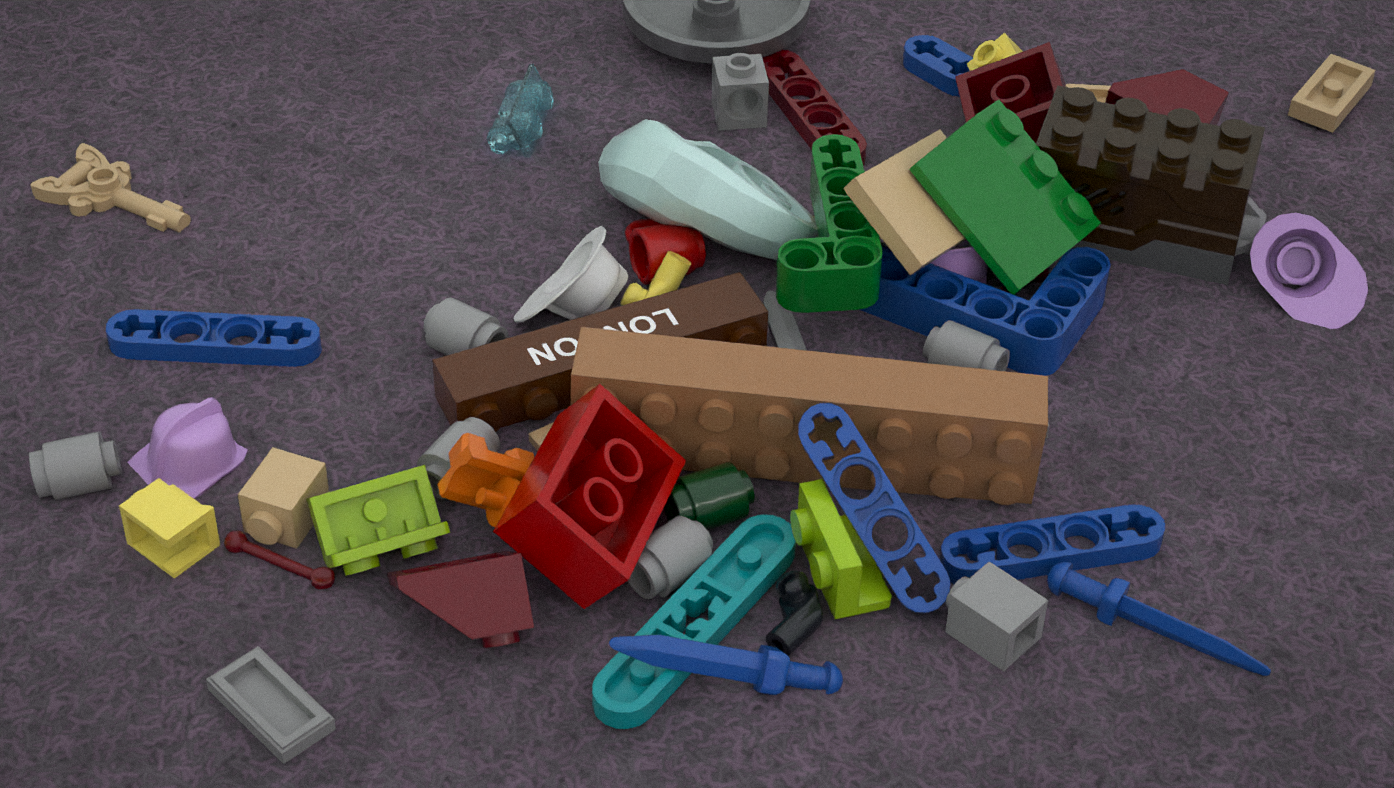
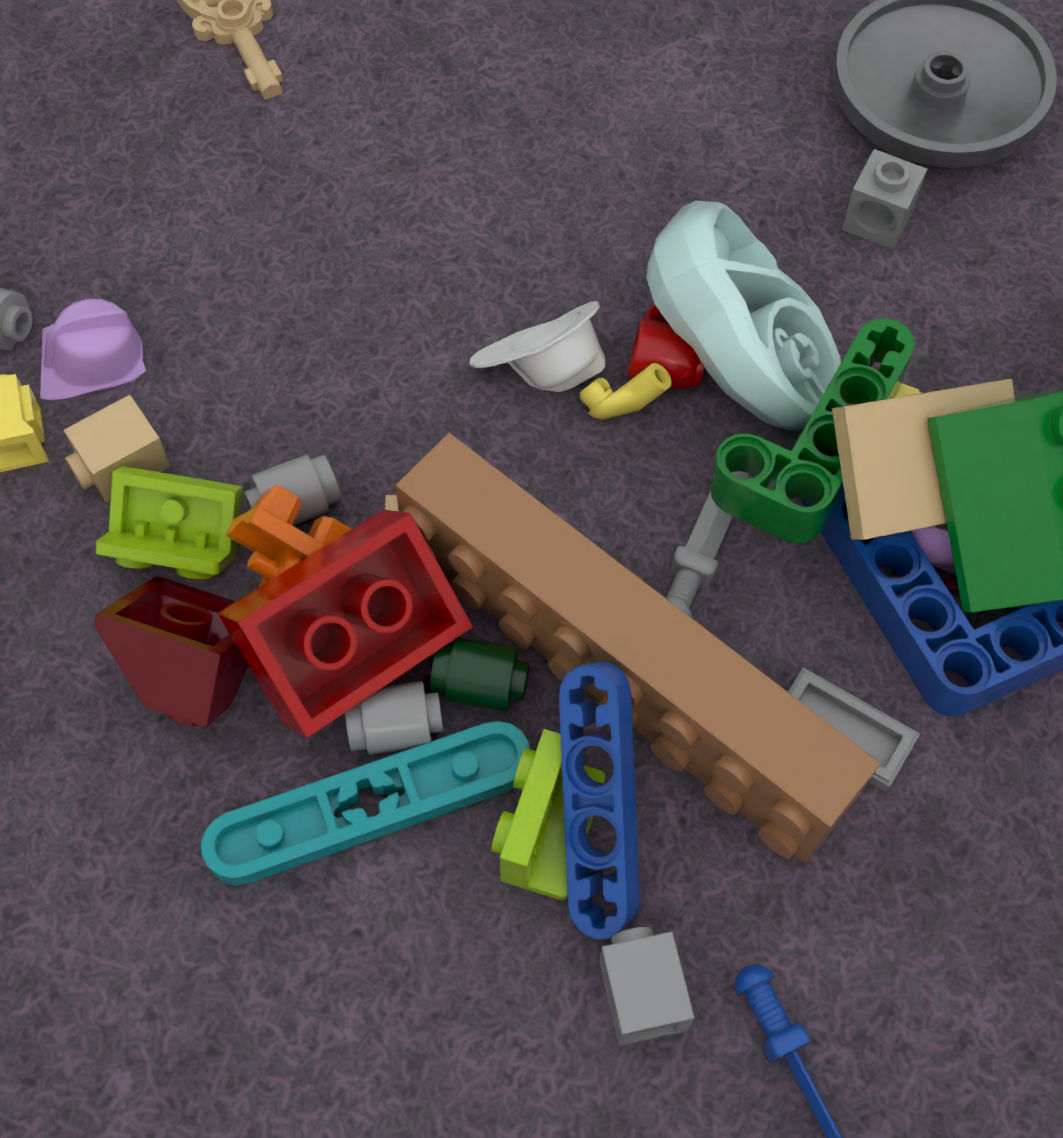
camera: 35 degrees right, 20 degrees up
(214, 333) = (205, 232): blue beam -> none
(320, 578) = (59, 469): dark red hinge -> none
(459, 327) = (408, 351): light grey brick -> none
(521, 114) = (659, 121): clear light blue hinge -> none
(532, 371) = (541, 447): reddish brown brick -> none
(767, 669) = (388, 904): blue sword -> none
(800, 612) = (471, 858): black arm -> none
(809, 111) = (950, 255): dark red beam -> none
(964, 347) = (867, 651): light grey brick -> none
(1048, 539) = (776, 943): blue beam -> none

